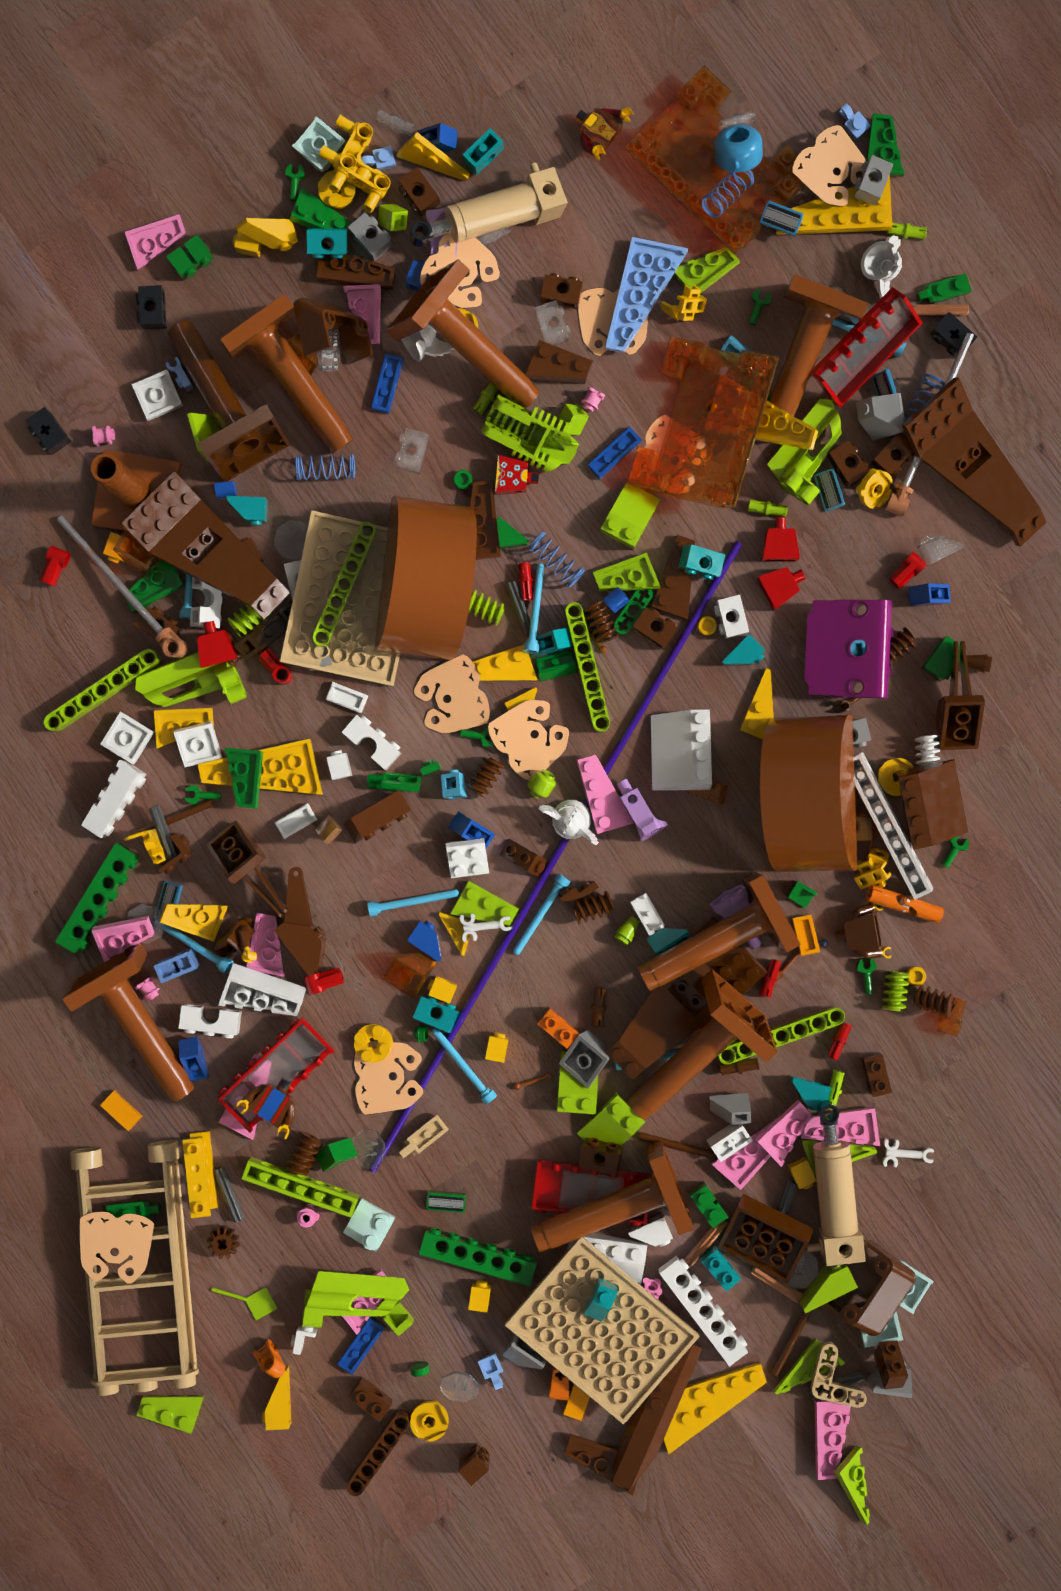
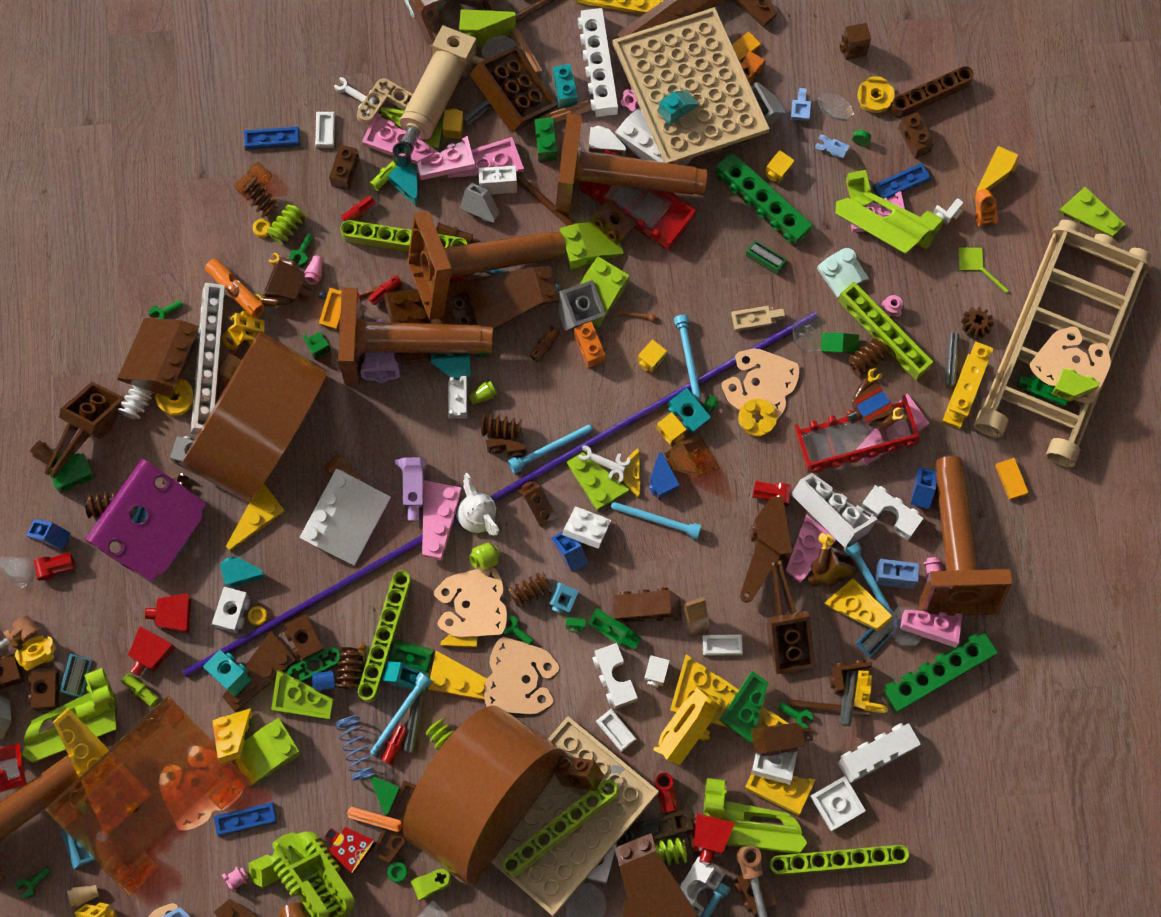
camera: 155 degrees left, 15 degrees down
(105, 1222) = (1073, 385): none -> lime slope
(200, 761) = (780, 737): none -> reddish brown hinge
(285, 730) = (687, 726): none -> yellow piece
(353, 636) = (578, 773): none -> reddish brown brick
(430, 482) = (427, 884): none -> lime piece
(439, 1346) = (834, 146): none -> light blue plate
(505, 510) = (375, 819): none -> orange axle
(667, 510) = (230, 733): none -> yellow wing
(711, 317) = (81, 895): none -> tan cone
(843, 958) = (314, 271): none -> bright pink cone
(882, 1163) = (382, 96): none -> tan beam
(916, 1103) = (325, 129): none -> white tile
(960, 1067) = (271, 138): none -> blue tile

